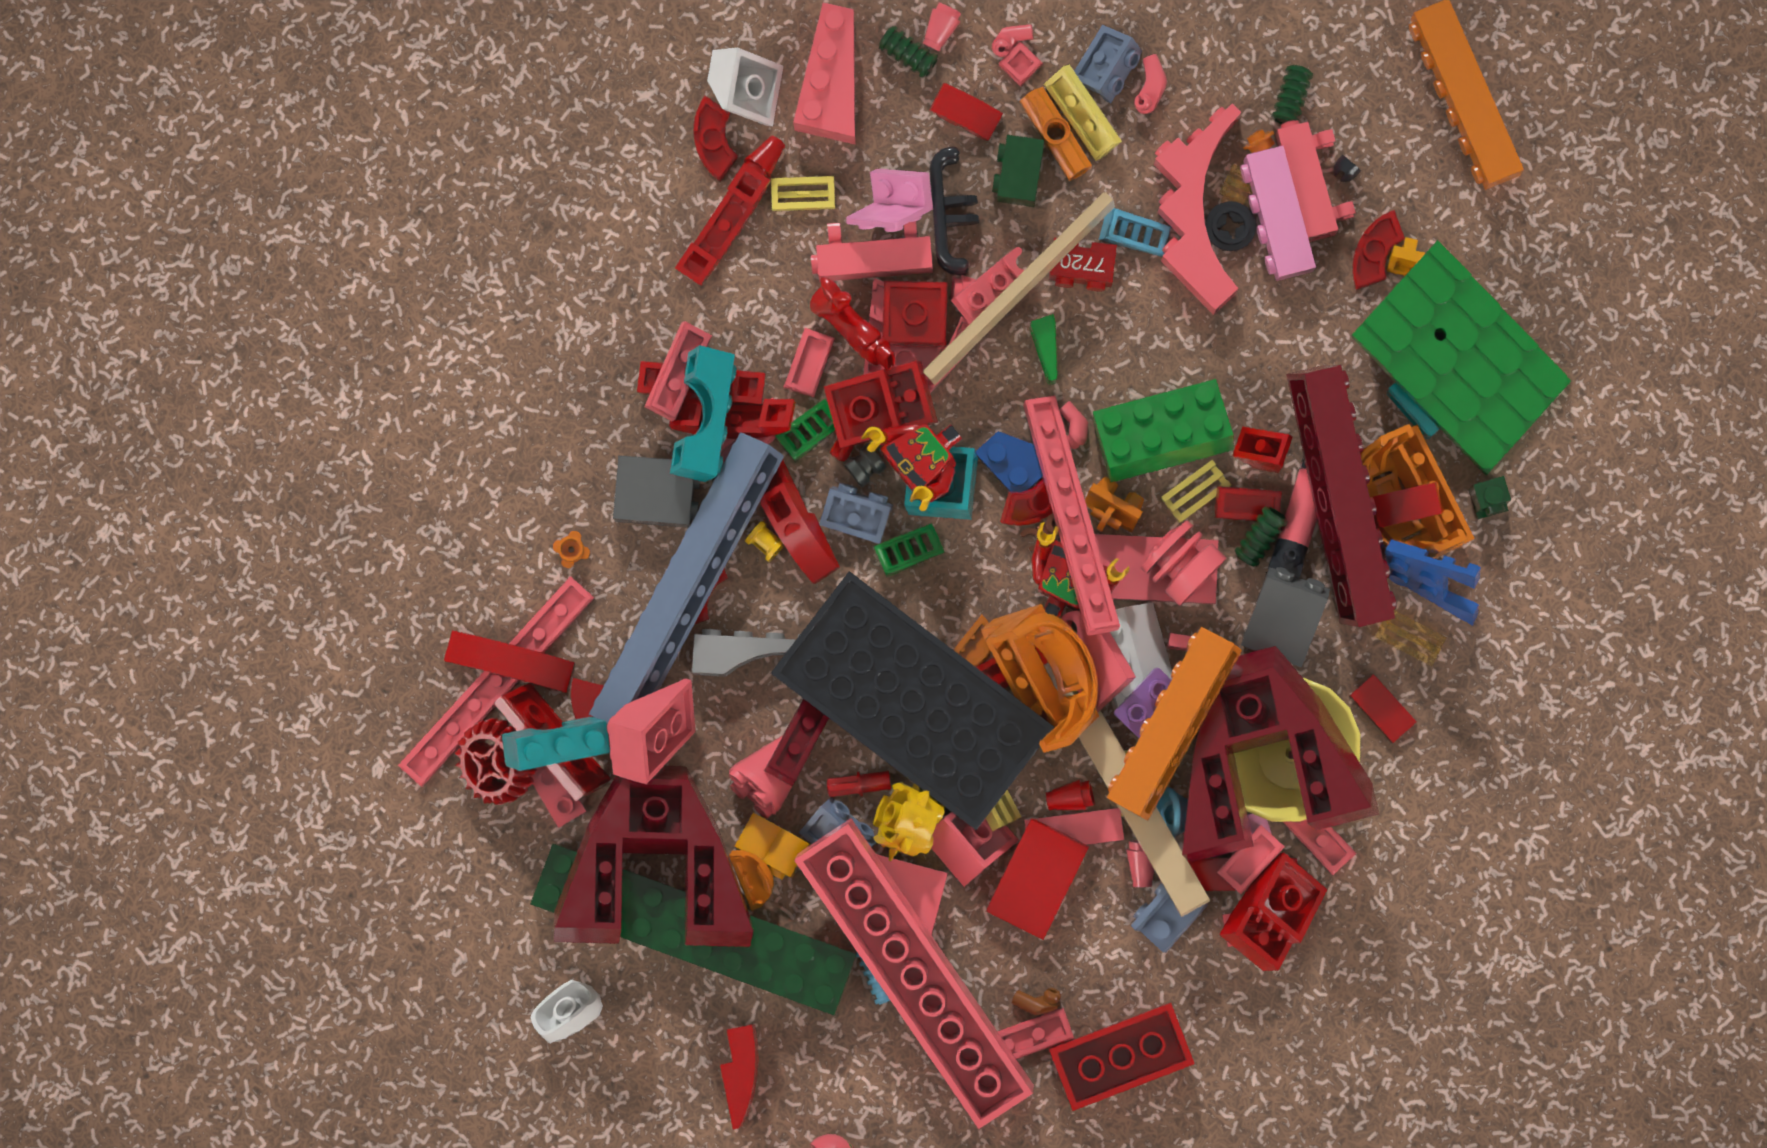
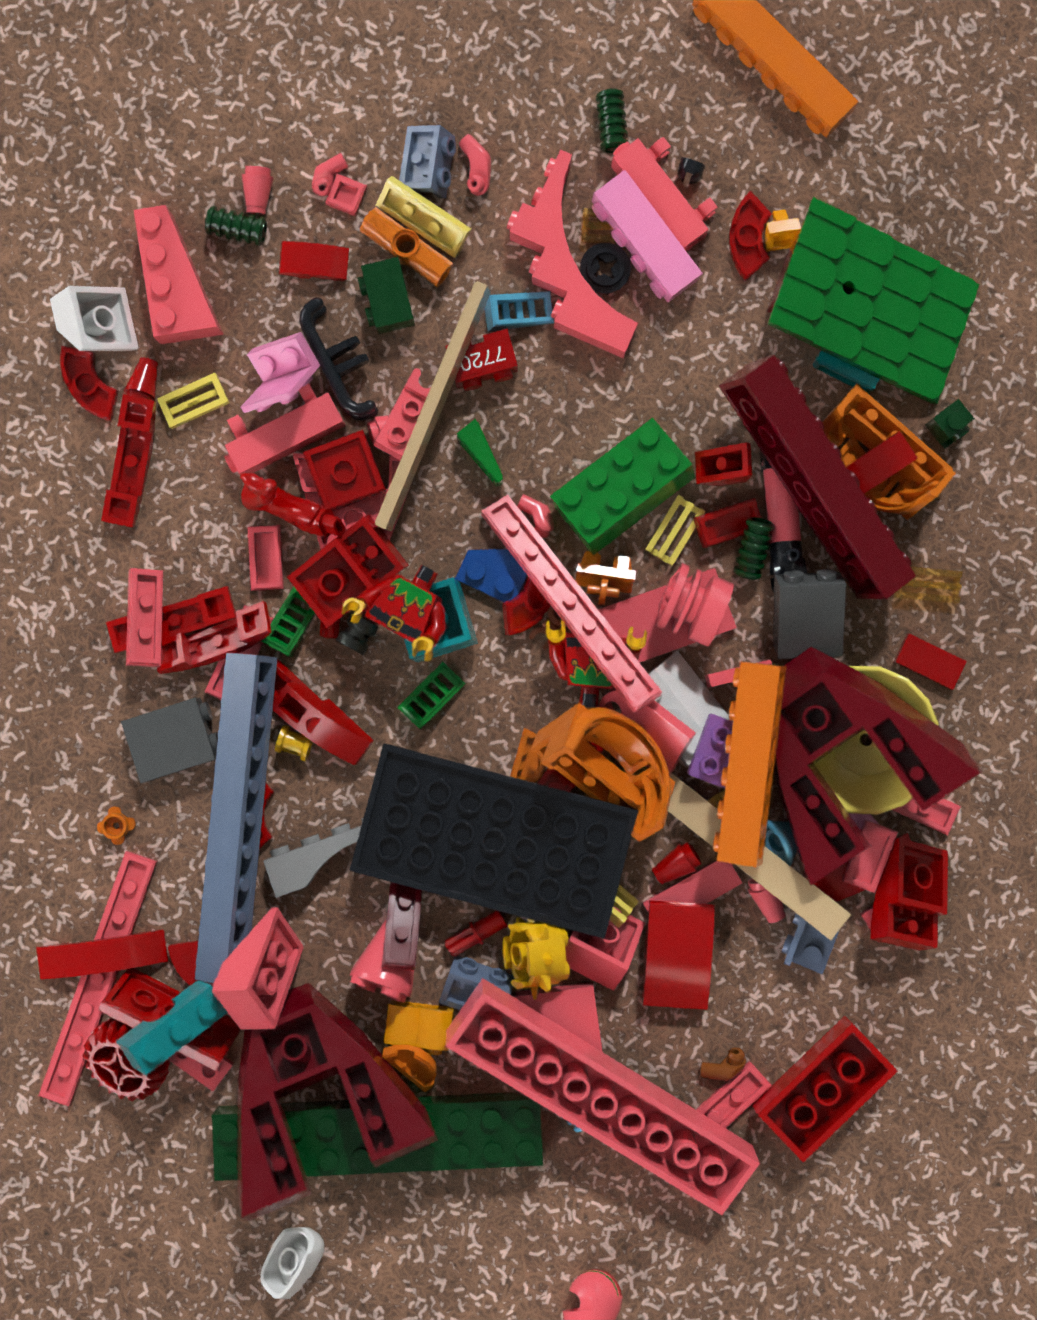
camera: 30 degrees left, 5 degrees up
(710, 376) = (175, 610): teal arch -> none
(742, 1073) = (476, 1253): red slope -> none
(856, 513) = (367, 681): sand blue bracket -> none
(1259, 141) = (599, 176): orange plate -> none
(1430, 576) = (930, 523): blue wing -> none

